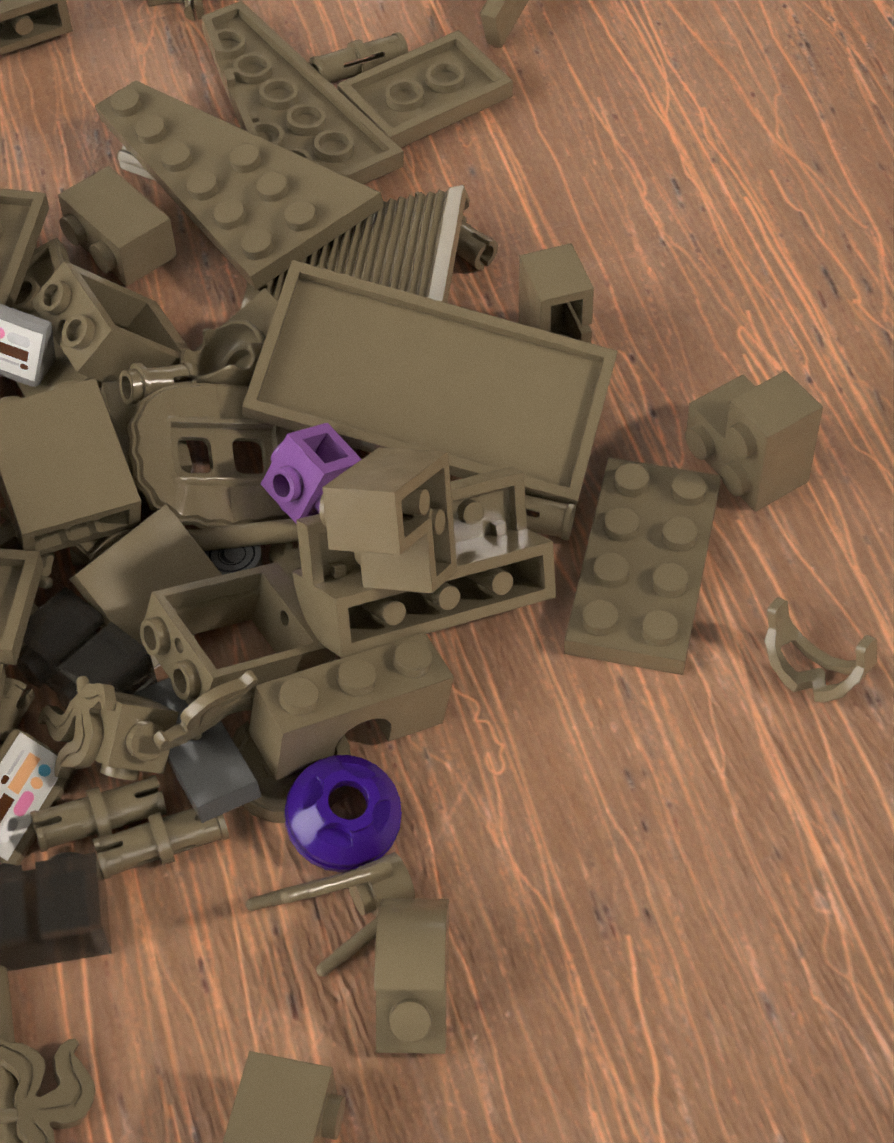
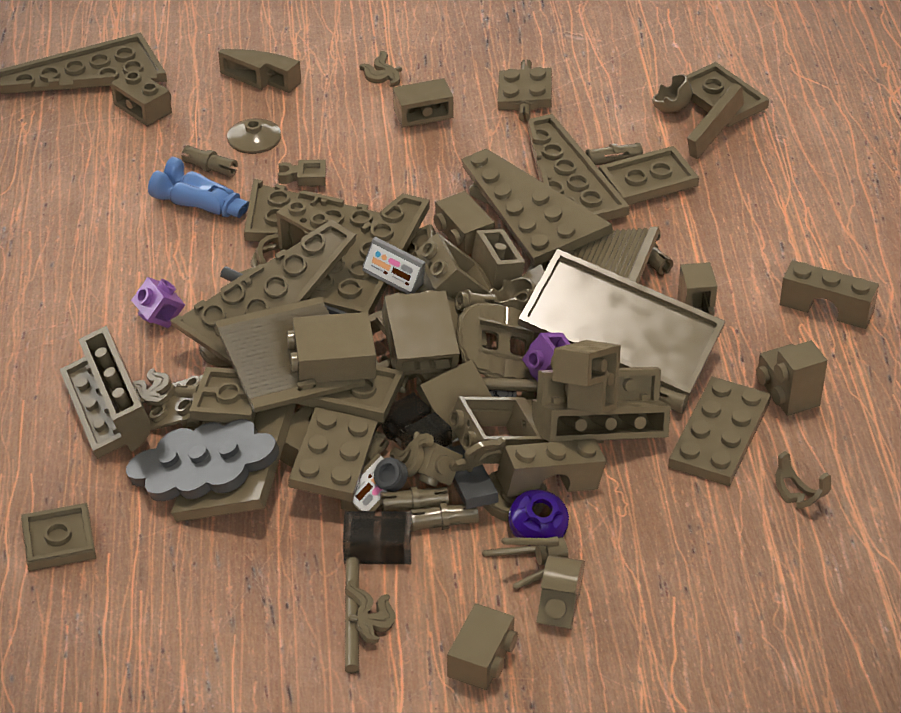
camera: 10 degrees right, 10 degrees down
(44, 773) = (390, 474): none -> dark grey tile
(185, 284) = (497, 256): none -> dark tan brick
(819, 262) = (851, 295): none -> dark tan arch

